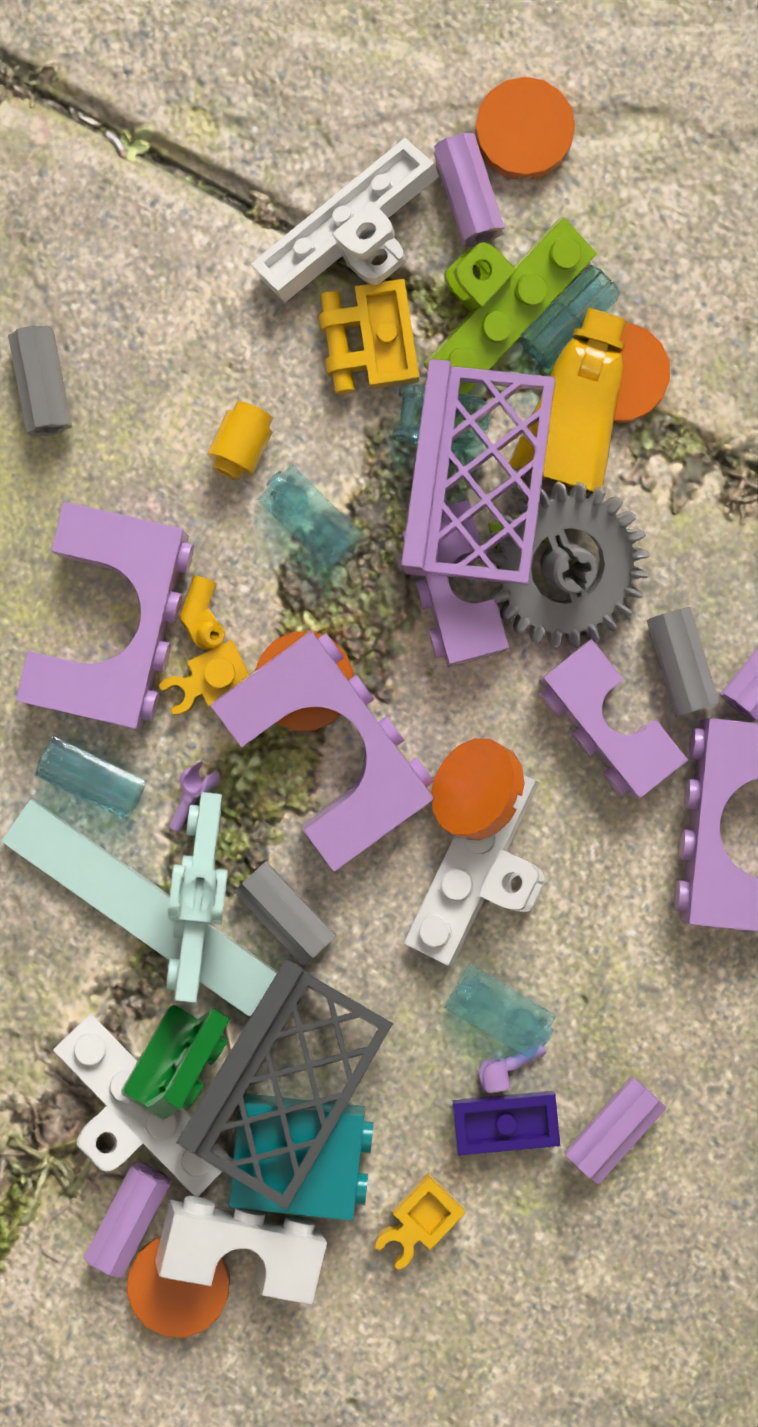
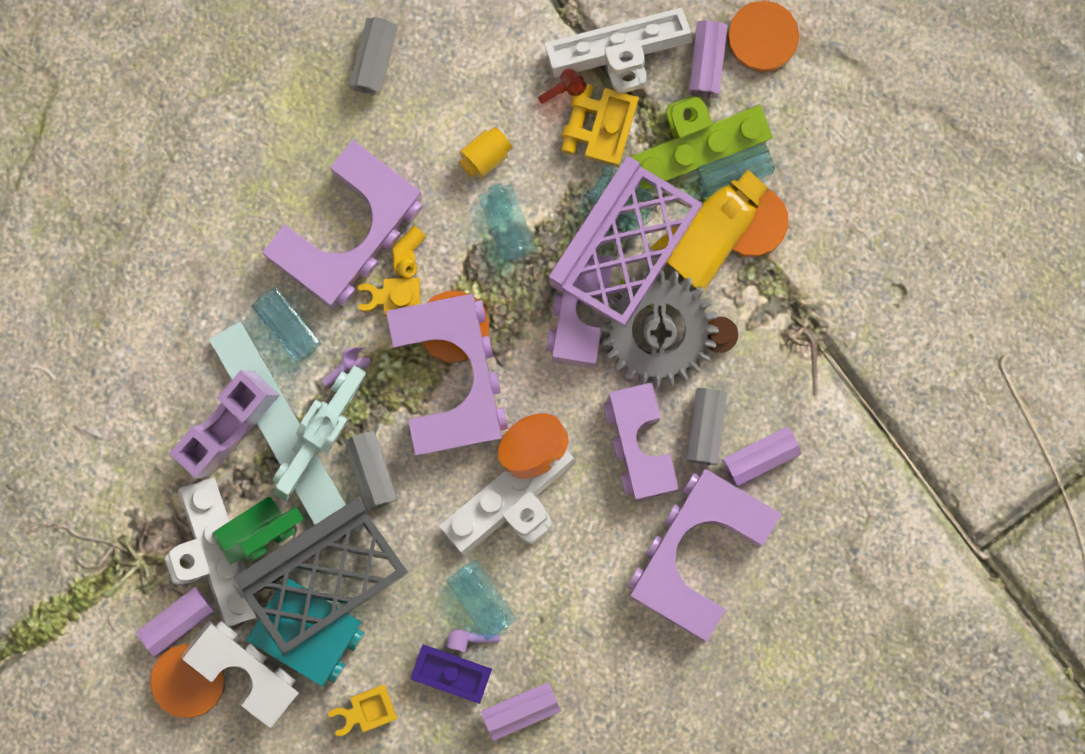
camera: 20 degrees right, 5 degrees down
(81, 919) = (213, 440): none -> lavender arch
(306, 299) = (569, 82): none -> clear red hand
(657, 534) = (726, 337): none -> reddish brown plate

